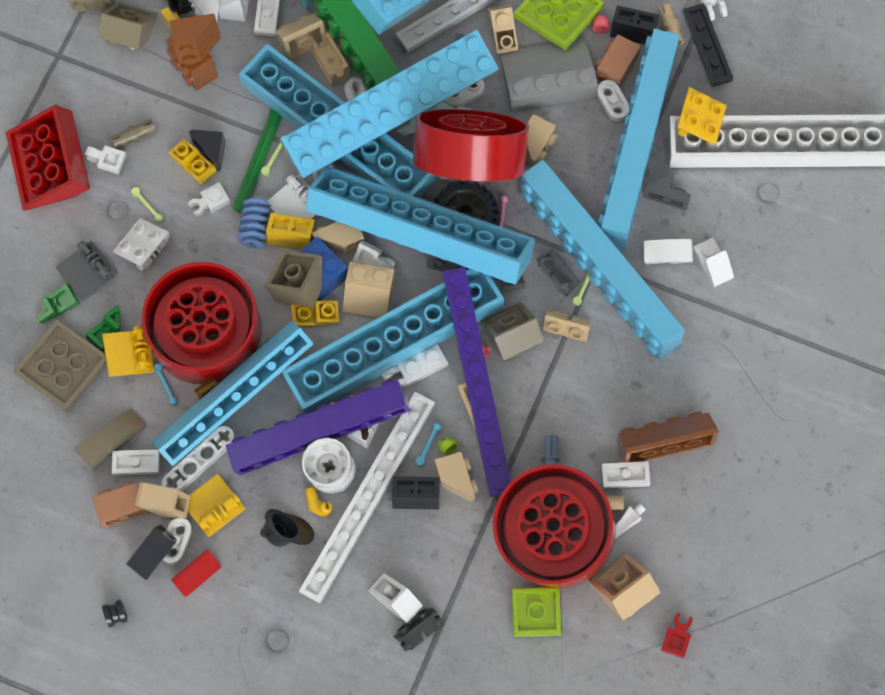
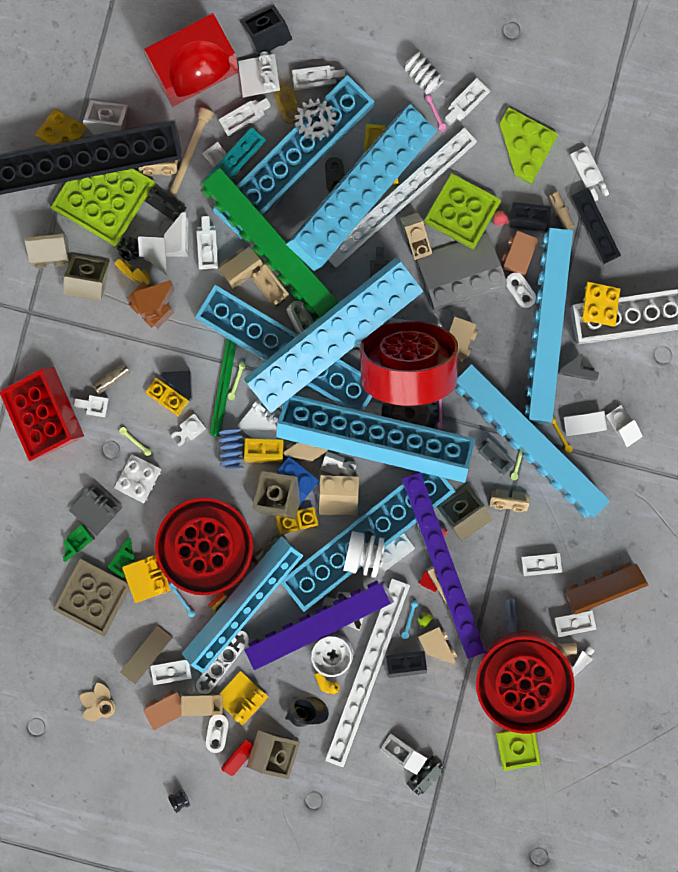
camera: 15 degrees left, 15 degrees up
(40, 485) = (94, 703): none -> tan plate
(152, 551) = (200, 747): black hinge -> none
(238, 574) = (273, 754): none -> dark tan slope
(379, 345) = (364, 554): none -> white wheel
(455, 402) = (426, 582): none -> red slope
(595, 401) = (541, 564): none -> white plate
(625, 587) = (587, 717): tan slope -> none
(631, 245) = (568, 448): none -> yellow hinge
(676, 639) = (633, 754): red plate -> none

